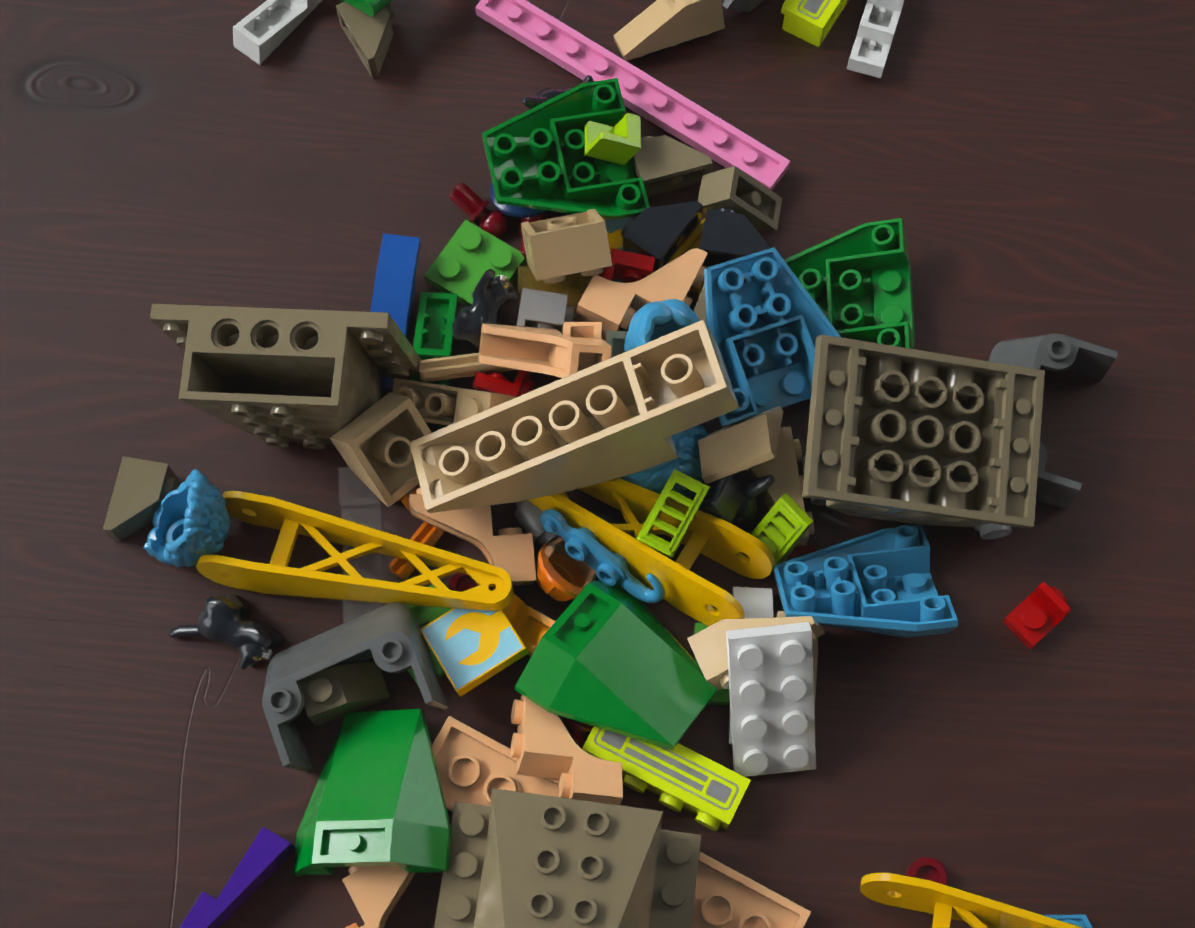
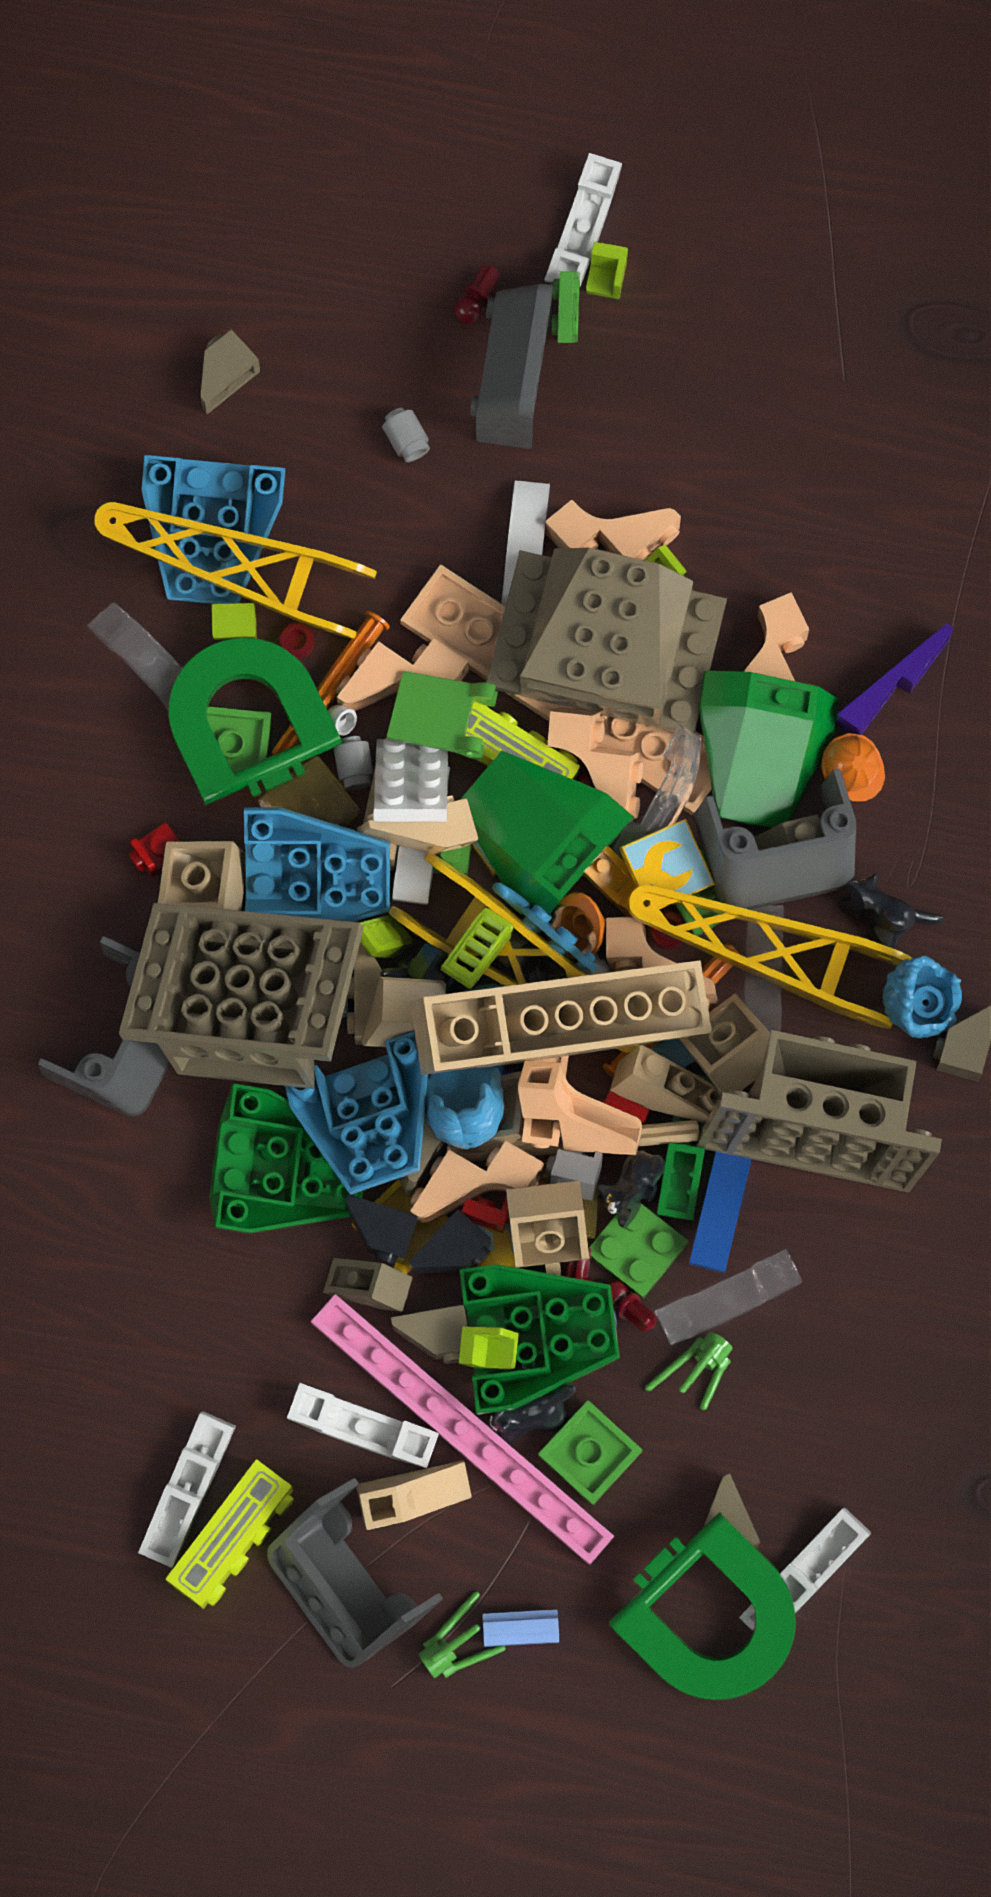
camera: 175 degrees left, 5 degrees up
(273, 794) = (859, 765): none -> orange piece
(393, 173) = (710, 1352): none -> bright green plant
(402, 216) = (729, 1298): none -> clear slope
(463, 764) = (674, 791): none -> clear slope
(503, 76) = (590, 1453): none -> bright green plate
(725, 81) = (362, 1427): none -> white slope
(753, 789) = (437, 713): none -> bright green flag
(817, 846) = (382, 671): none -> light nougat arch
(837, 734) = (354, 763): none -> light grey brick
(860, 785) = (343, 718): none -> white hinge
(878, 825) = (341, 668): none -> orange axle
(879, 680) = (314, 795): none -> clear yellow slope
(918, 803) = (285, 677): none -> green piece
(977, 742) = (241, 735): none -> bright green plate
(983, 575) = (203, 875): none -> tan slope
(1004, 881) = (234, 621): none -> lime panel
(1094, 832) = (137, 649): none -> clear slope

